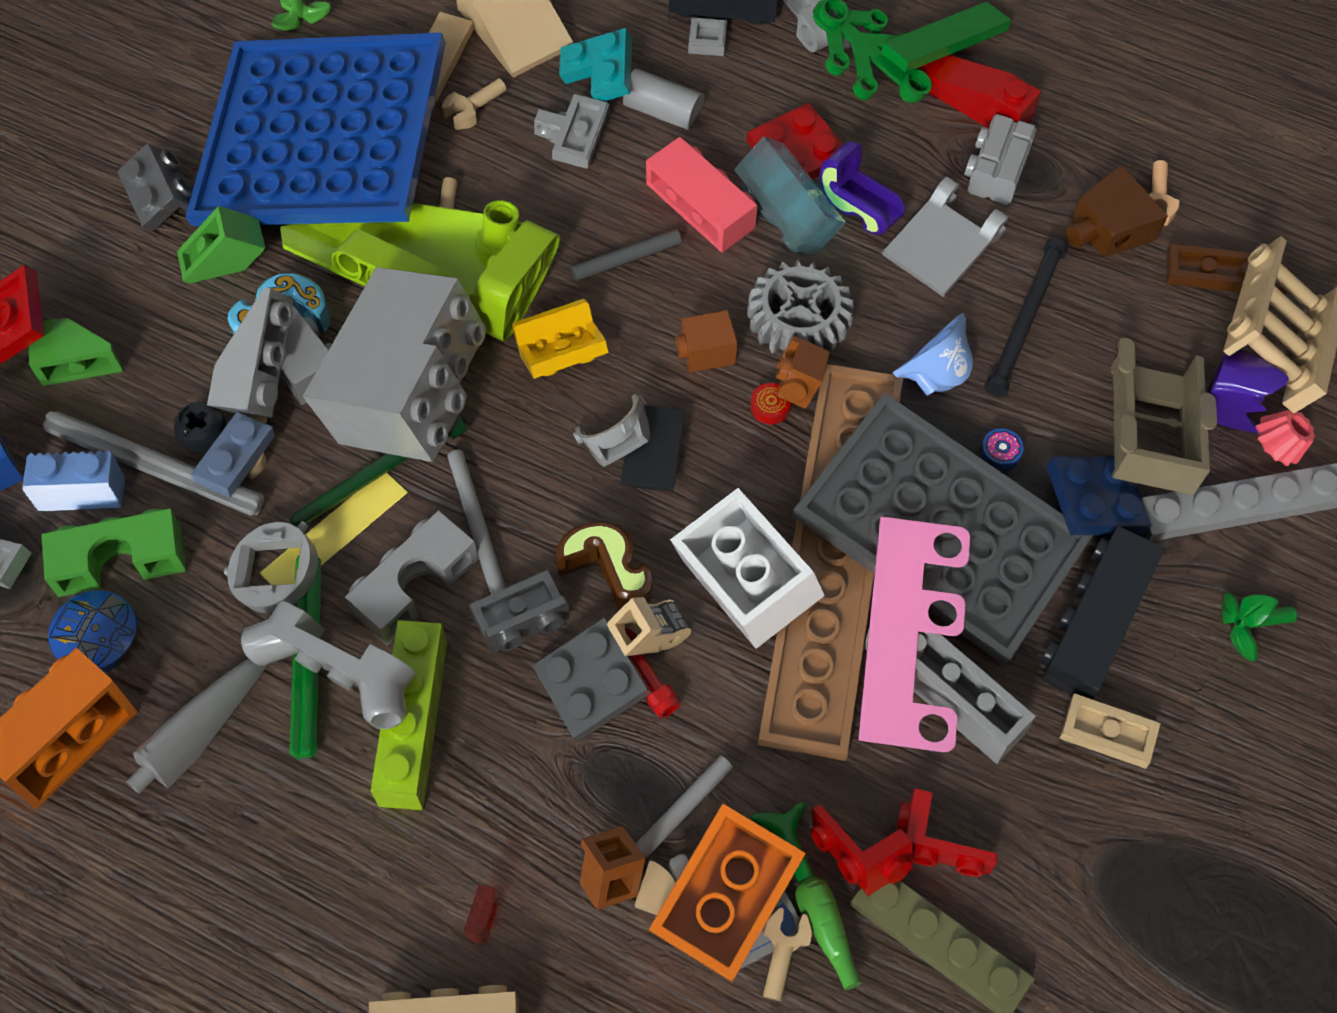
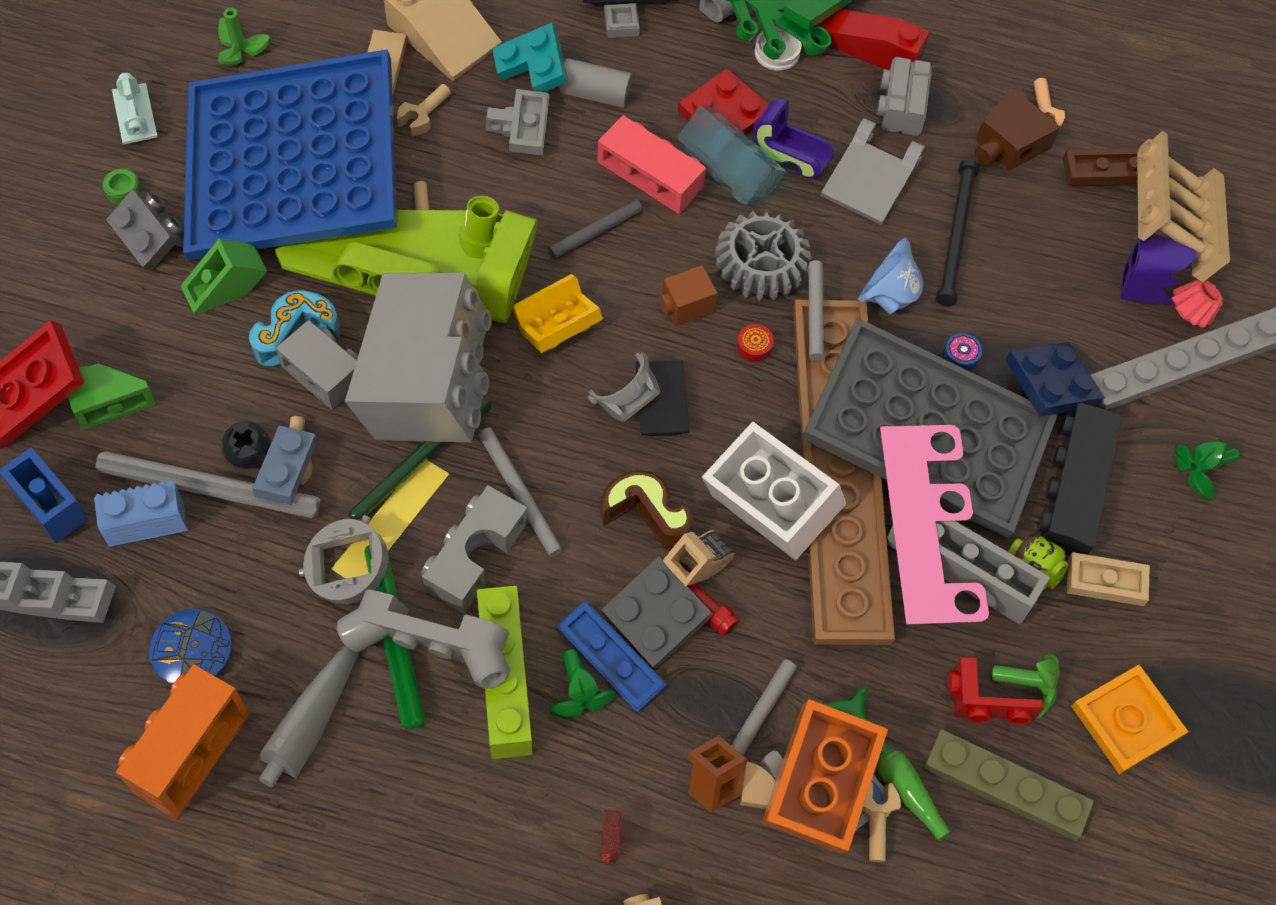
camera: 15 degrees left, 0 degrees up
(77, 554) = (161, 577): bright green arch -> none
(139, 135) = (119, 183): none -> bright green tile
(173, 62) = (133, 110): none -> light aqua hinge
(251, 363) = (285, 378): light grey slope -> none
(487, 749) = (581, 690): none -> green plant
(520, 612) = (579, 564): flat silver bracket -> none
(532, 719) = (611, 656): none -> blue tile
(800, 371) = (778, 310): dark orange brick -> none
(843, 378) = (816, 314): none -> light grey bar
(871, 869) = (937, 734): red bracket -> none
(882, 98) = (787, 59): none -> white piece
(1008, 826) = (1045, 678): none -> bright green plant
(1035, 692) = (1043, 556): none -> lime head
(1098, 893) = (1129, 719): none -> light orange plate
(1197, 416) = (1122, 299): dark tan piece -> none

